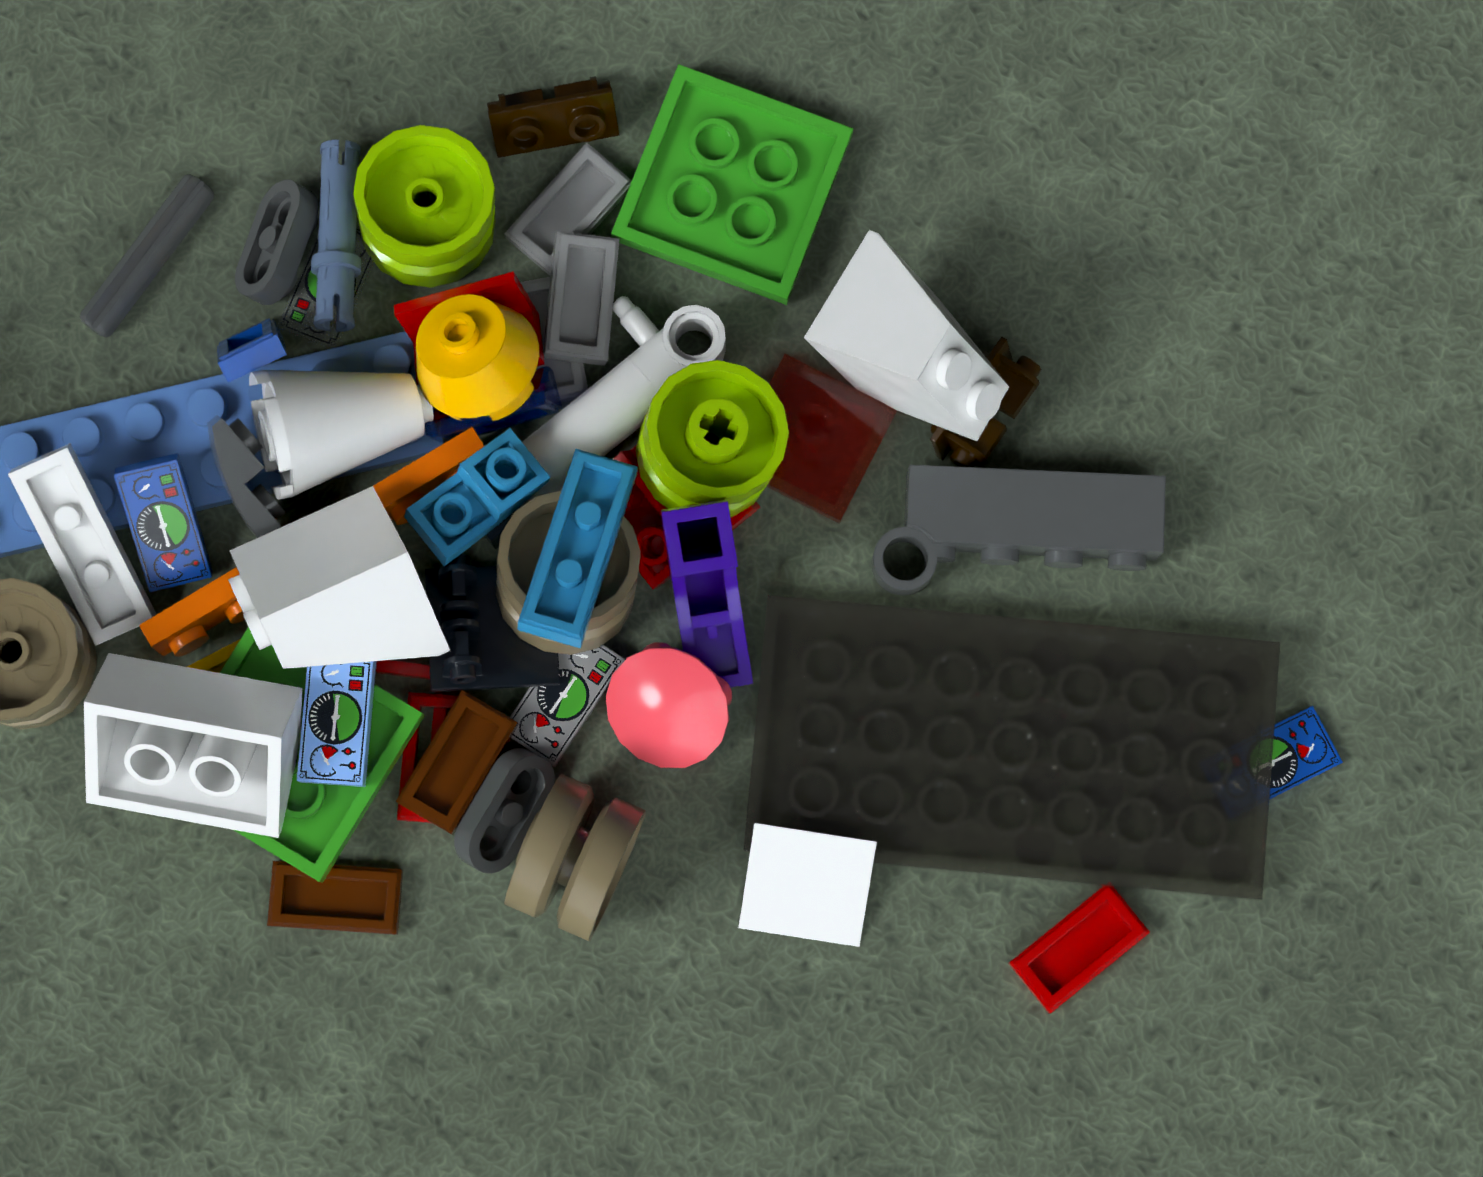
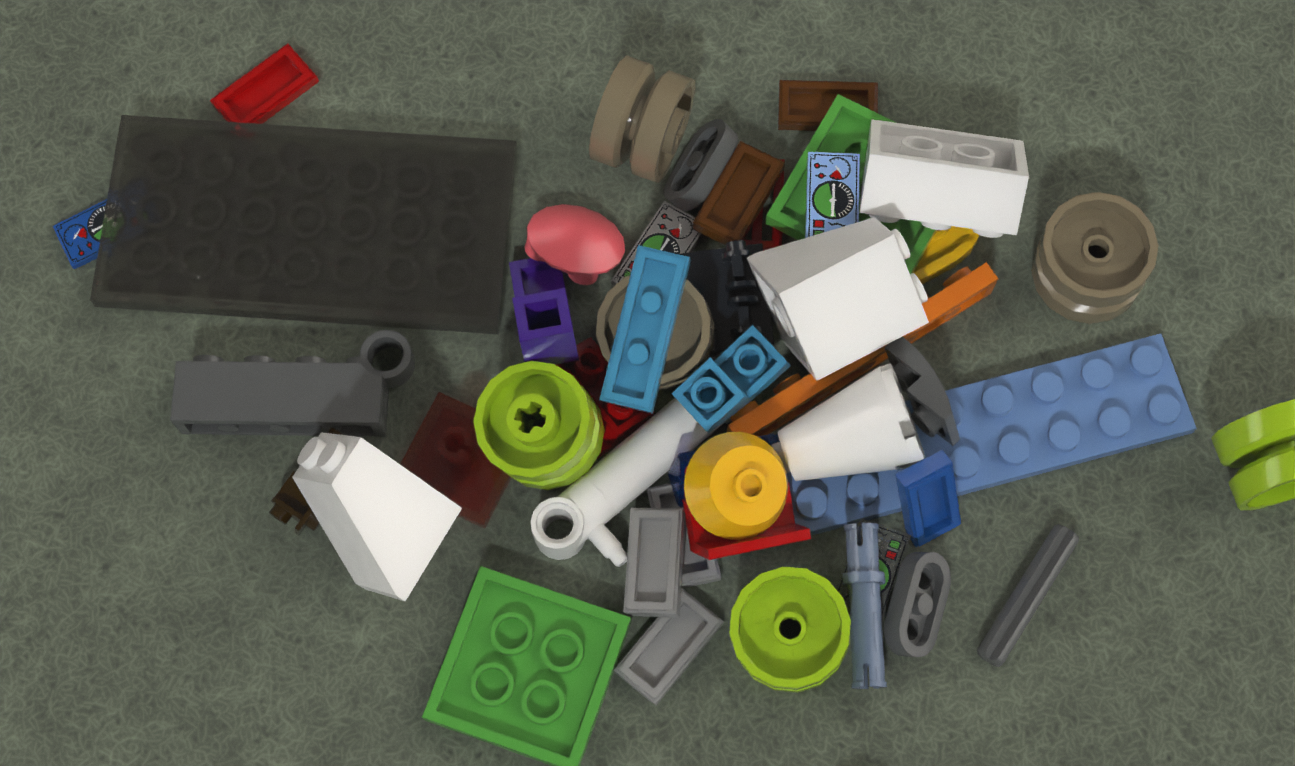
camera: 175 degrees left, 10 degrees down
(82, 544) = (1052, 343): white plate -> none
(163, 522) = (988, 367): tile -> none
(529, 123) = (705, 719): dark brown hinge -> none
(807, 884) = (467, 121): white sticker -> none

